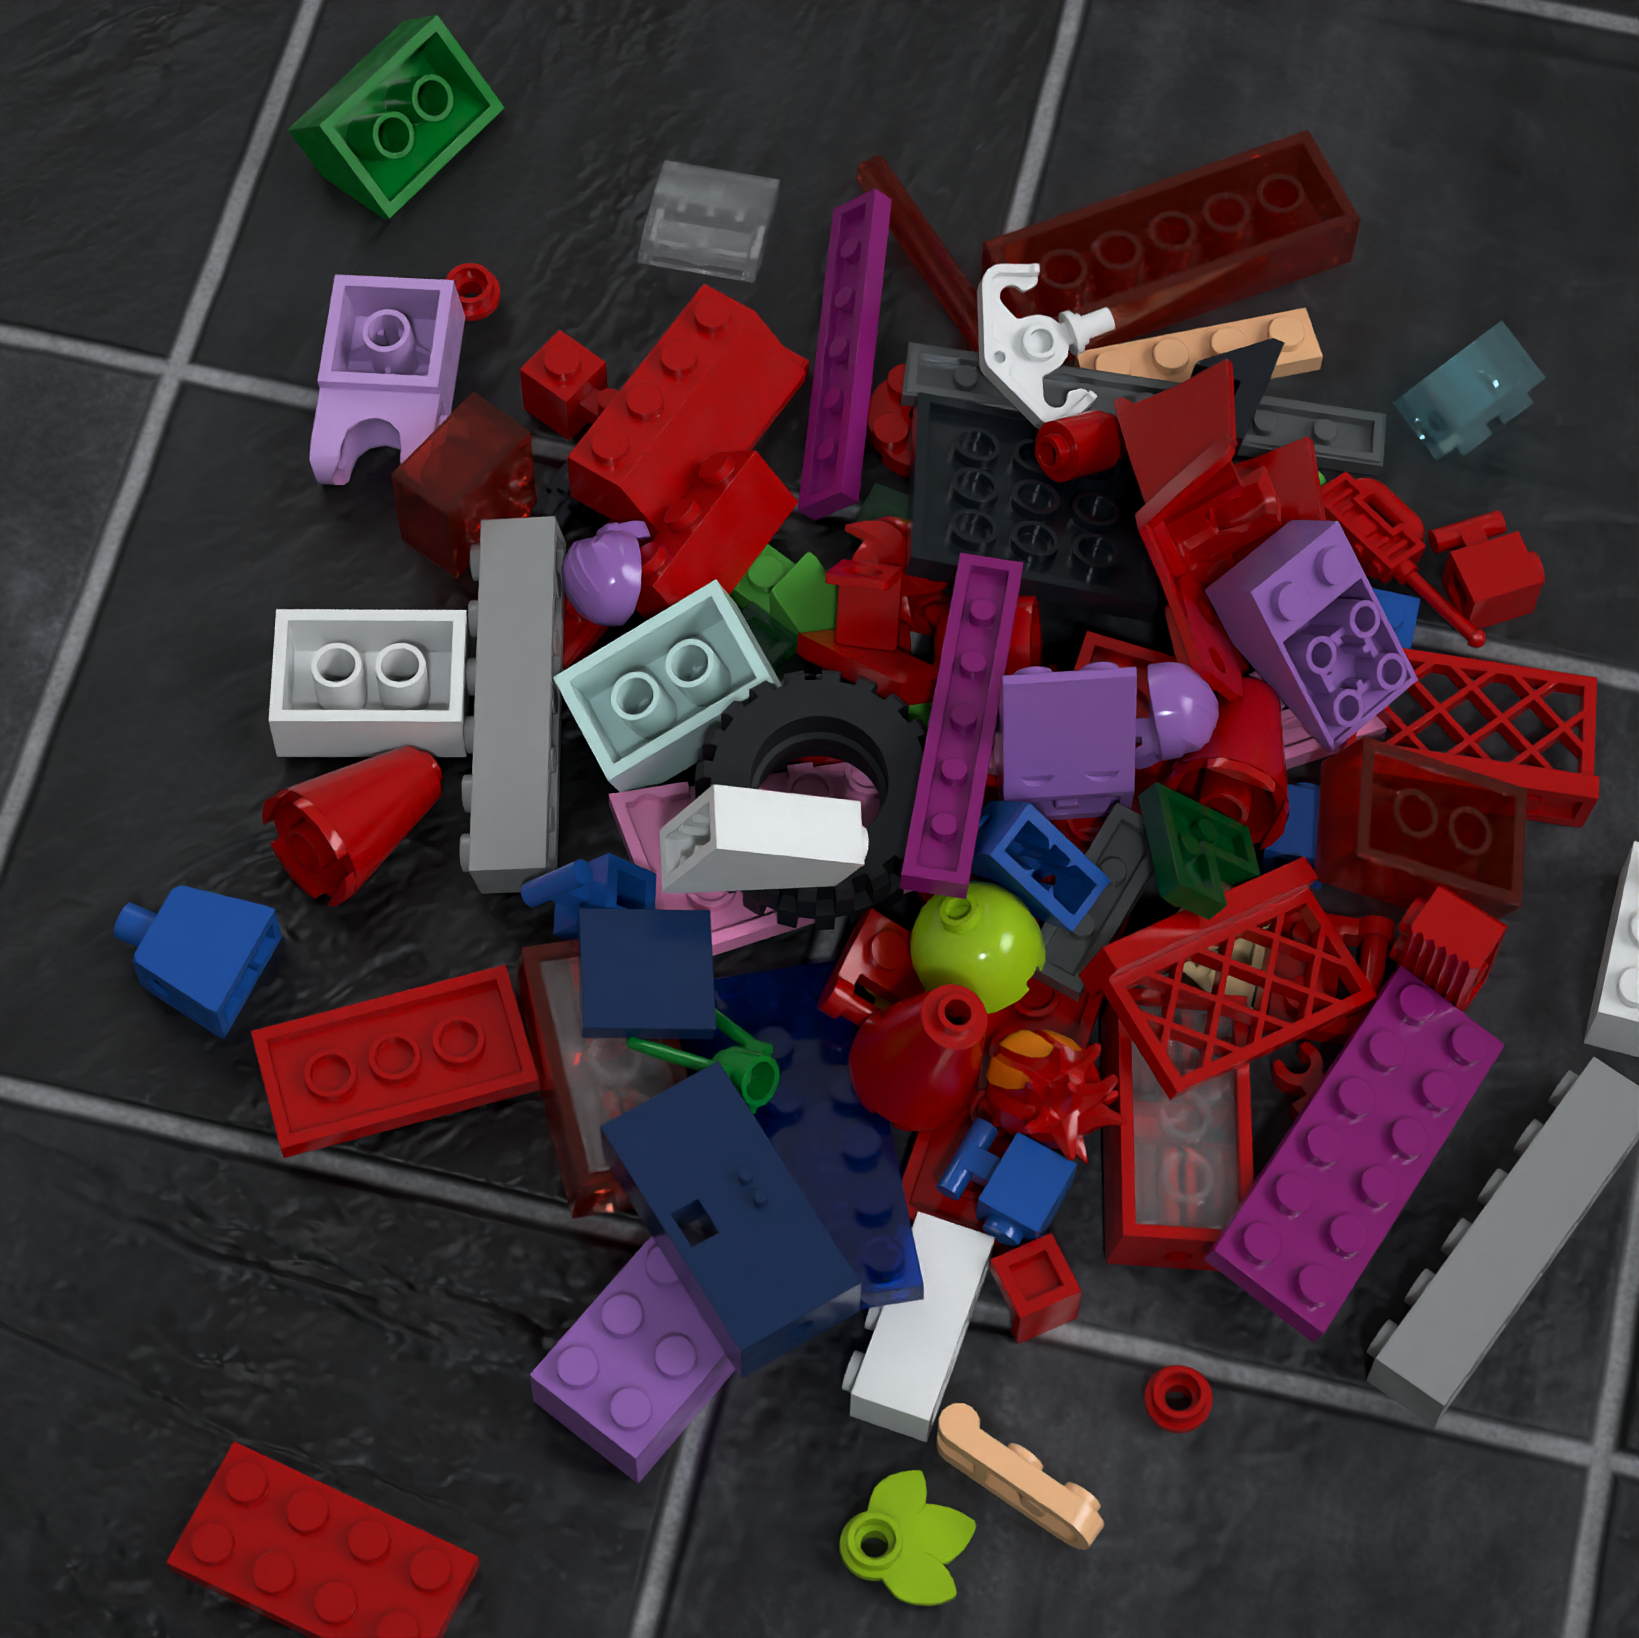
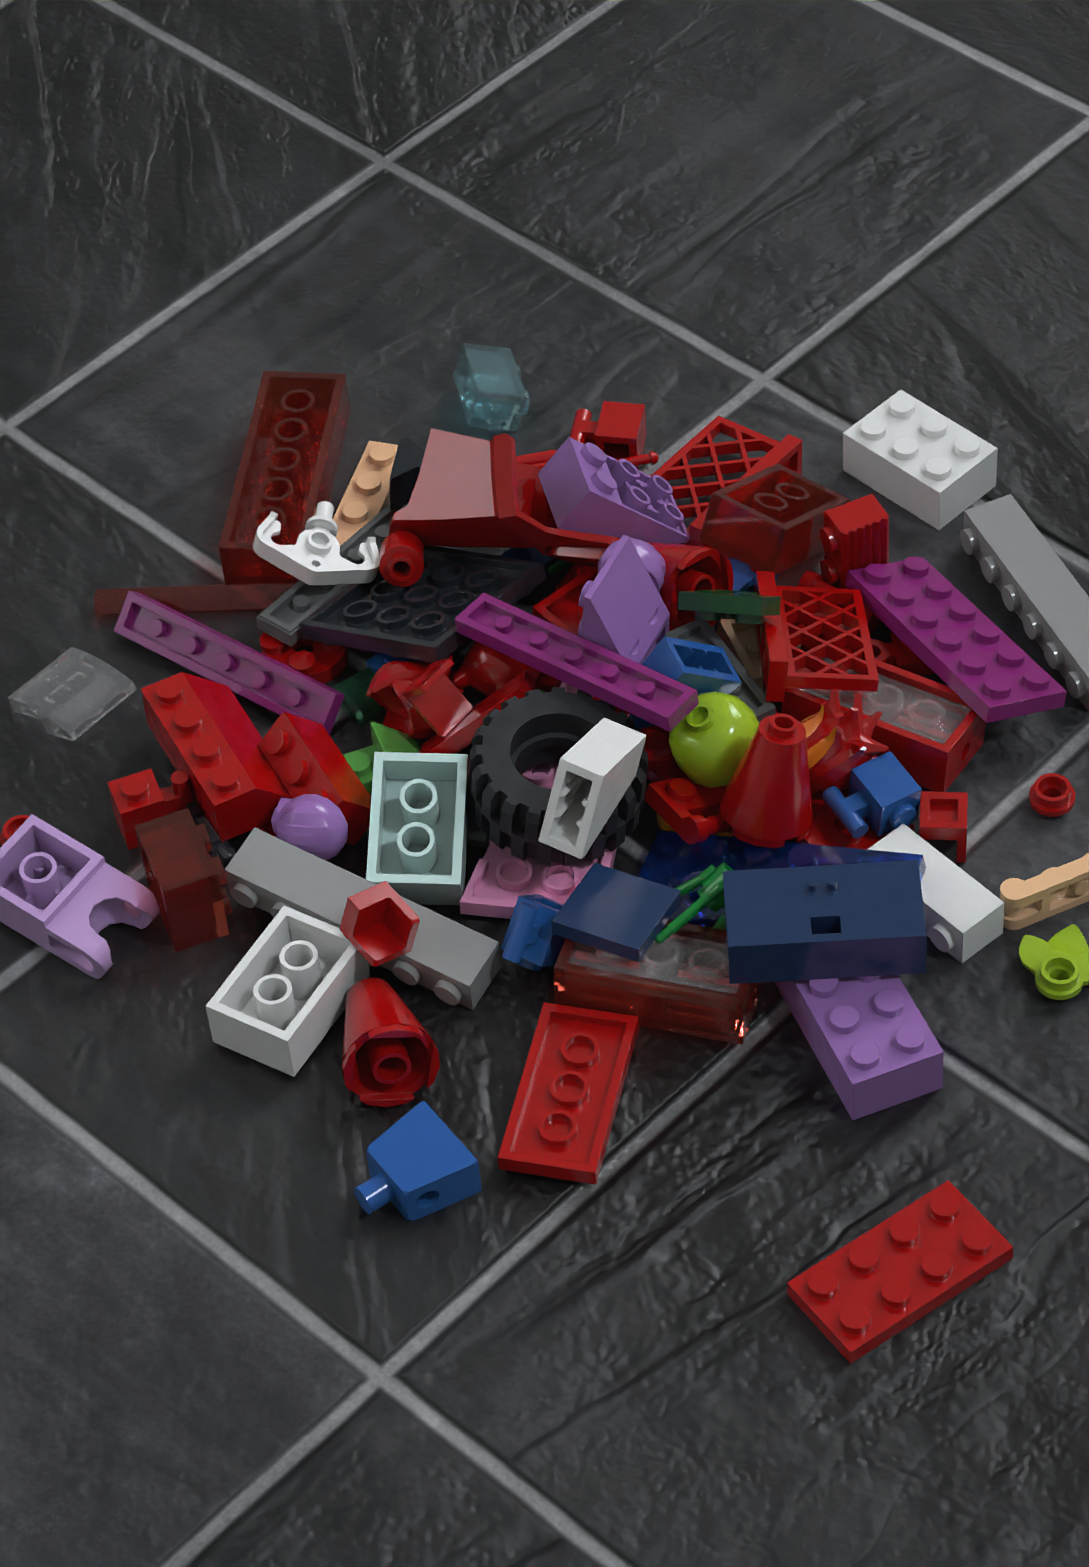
camera: 55 degrees left, 15 degrees down
(471, 724) = (379, 924): none -> red panel

